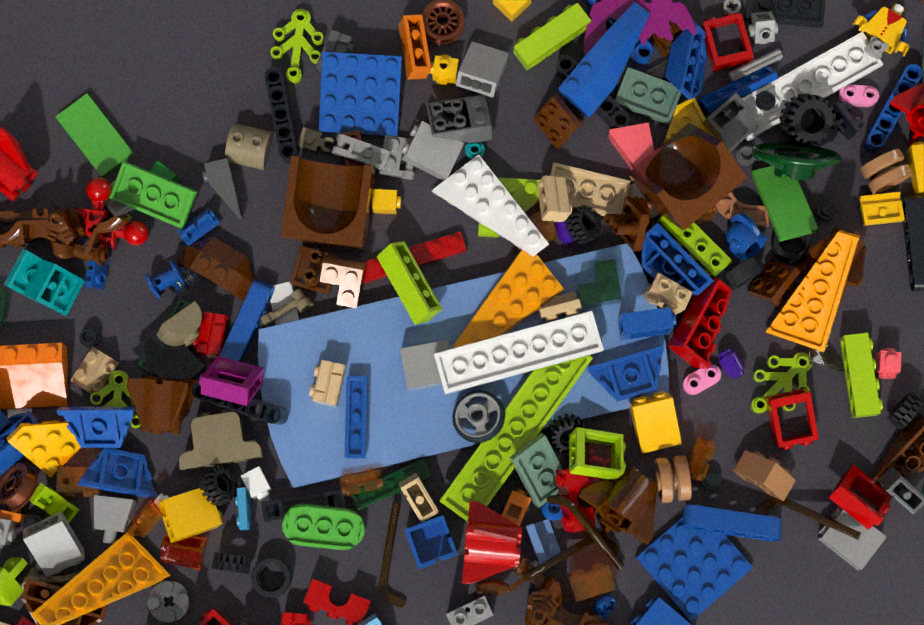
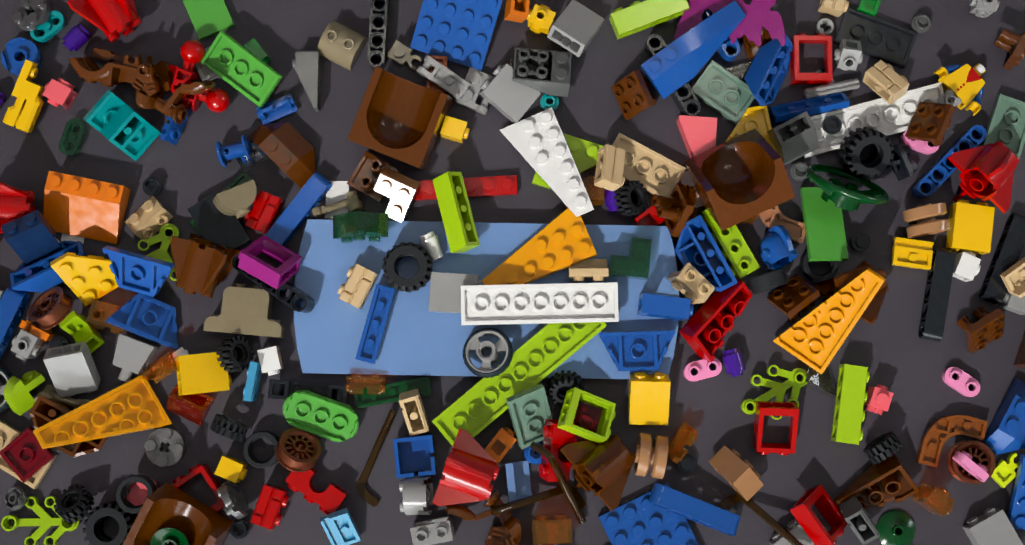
camera: 10 degrees right, 5 degrees up
(244, 606) = (231, 469): none -> yellow brick
(309, 567) = (298, 450): none -> copper wheel
(315, 321) = (360, 225): none -> clear green brick
(368, 334) = (397, 253): none -> black tyre
(393, 323) = (431, 244): none -> white cone
(443, 582) = (416, 495): none -> light grey brick
(606, 239) = (649, 218): none -> red panel
(807, 45) = (886, 82): none -> tan brick
(863, 73) = (930, 122): none -> reddish brown plate

